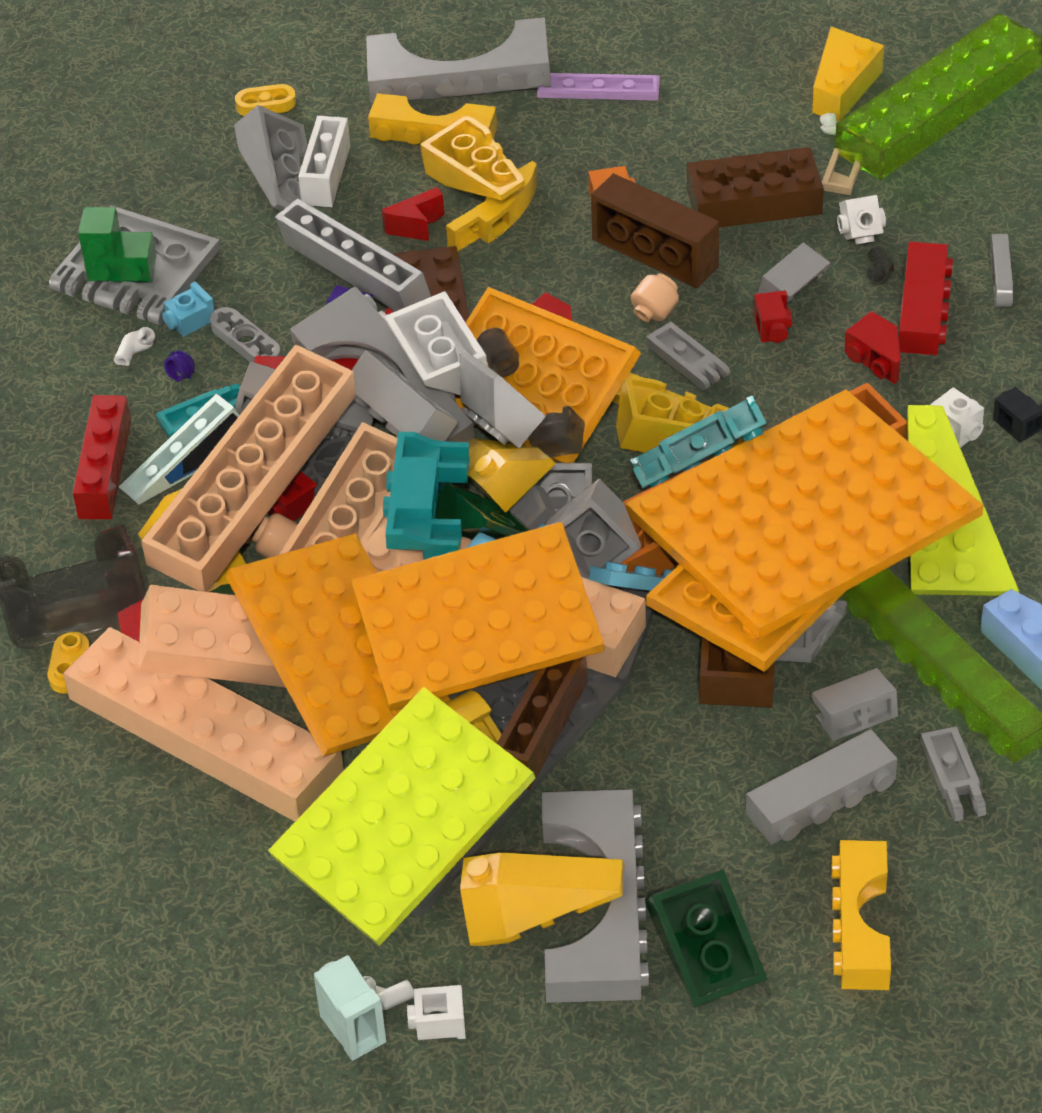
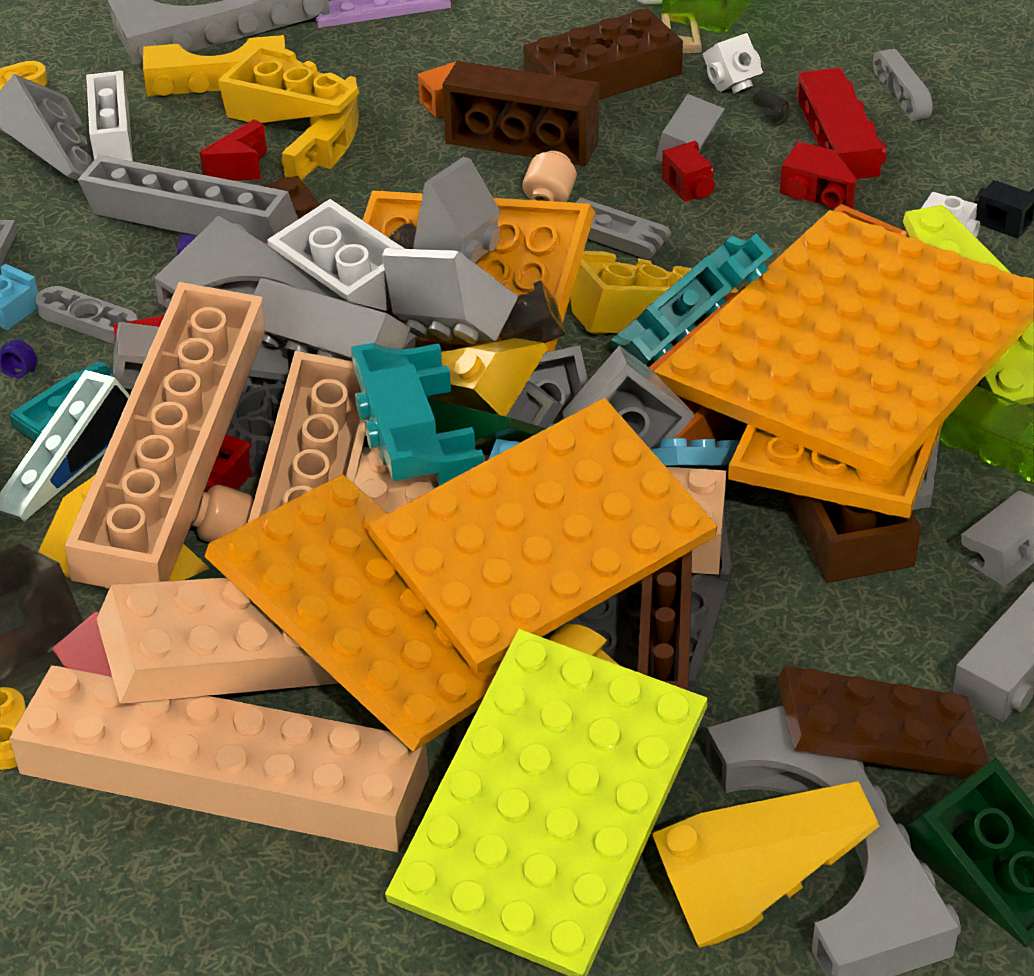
camera: 20 degrees left, 5 degrees down
(523, 338) = (458, 213): none -> light grey slope
(669, 821) = (881, 722): none -> reddish brown plate

